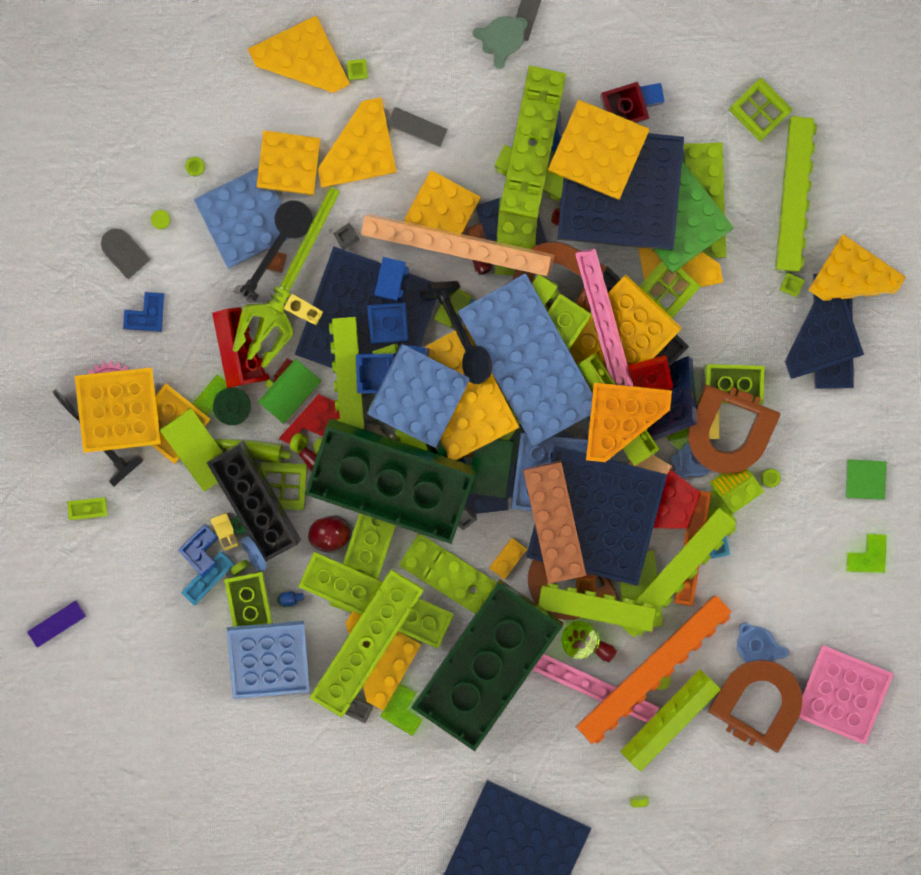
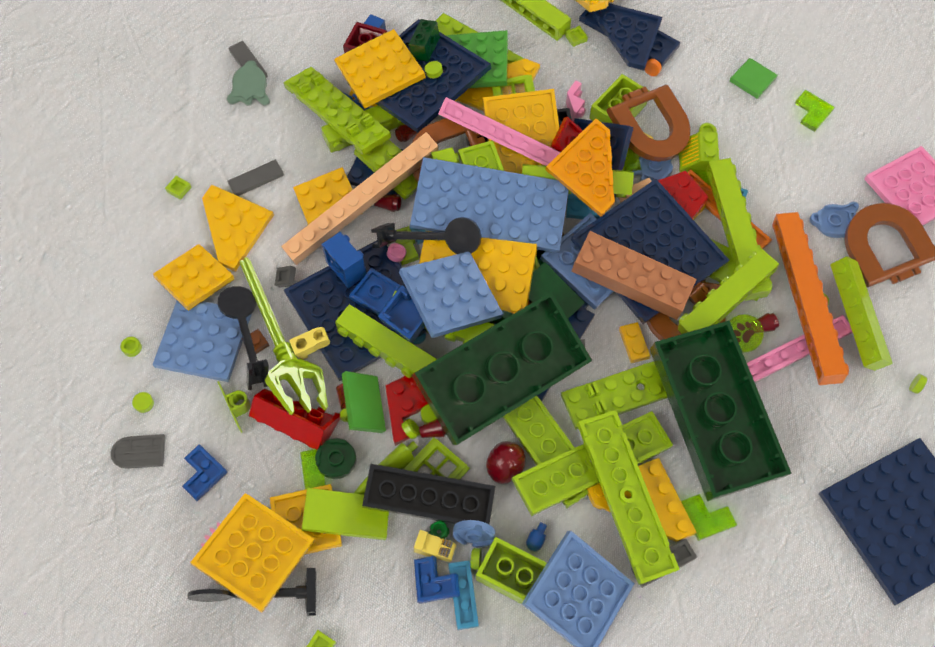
camera: 50 degrees left, 25 degrees down
(209, 293) = (232, 399): none -> lime piece
(302, 55) = (131, 213): yellow plate -> none
(435, 310) = (396, 252): none -> bright pink tile
(630, 202) = (433, 69): none -> lime tile
(654, 169) = (424, 40): none -> dark green brick
(705, 344) = (574, 101): none -> bright pink slope
(805, 383) = (653, 67): none -> orange tile

